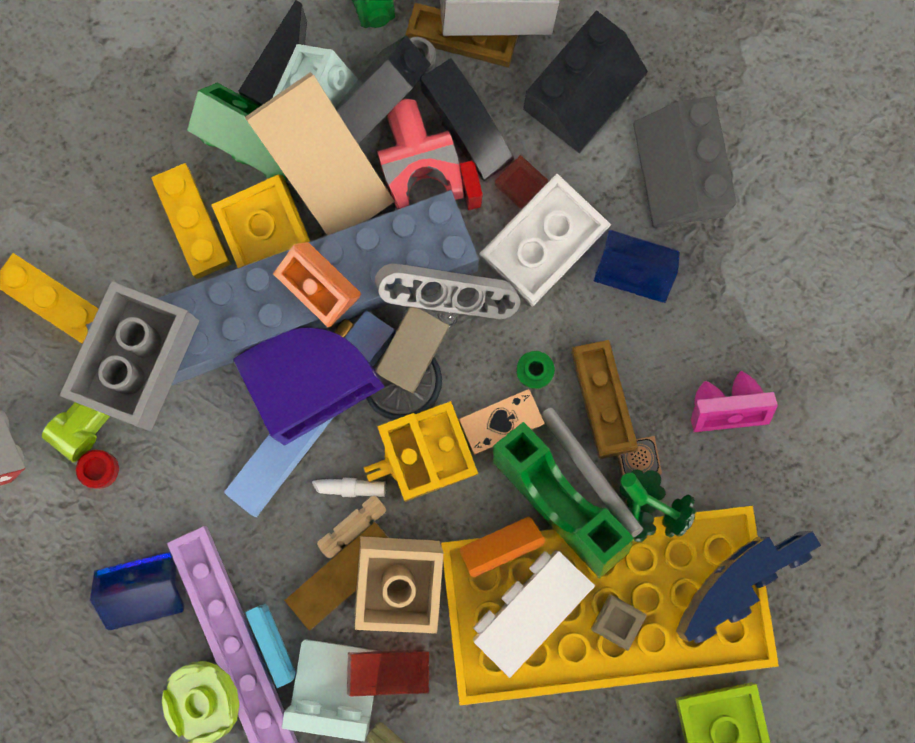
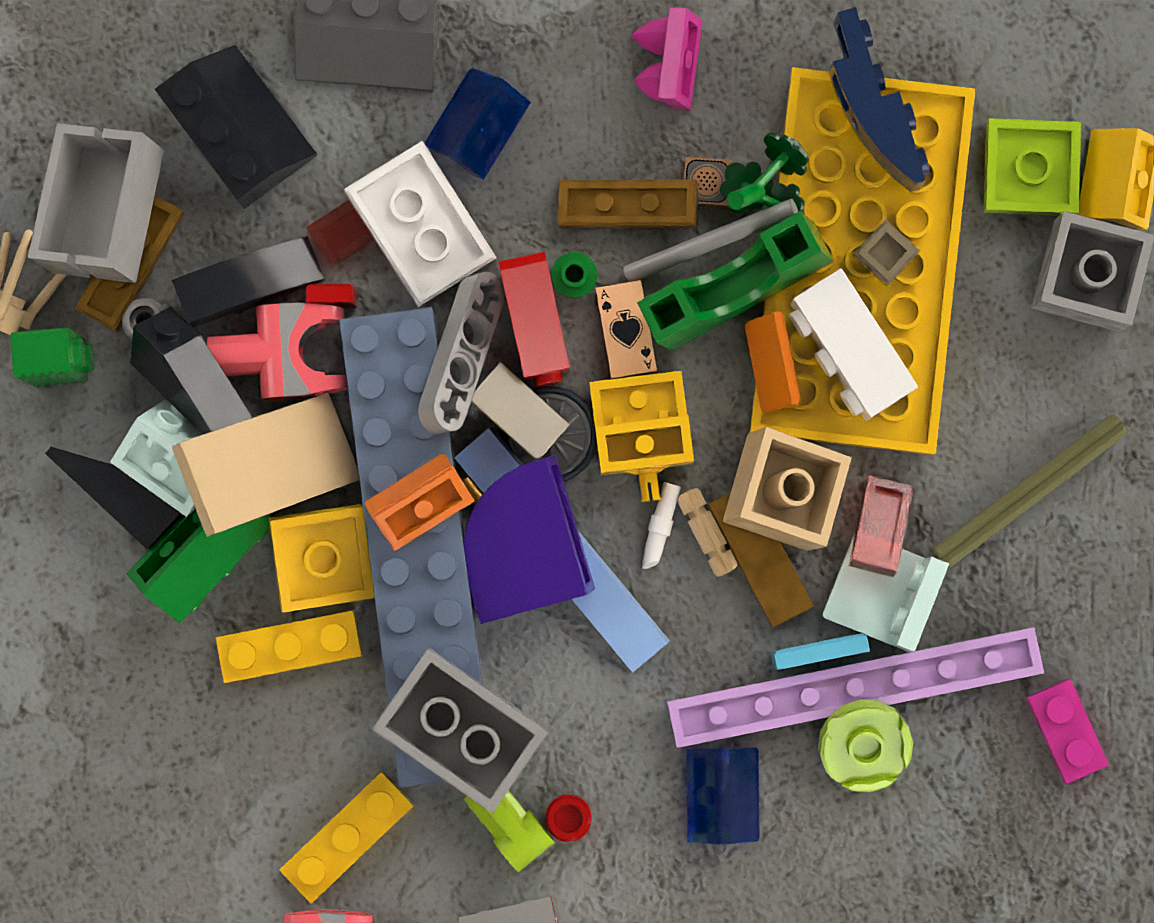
camera: 75 degrees left, 5 degrees up
(491, 343) = (535, 319): none -> slope

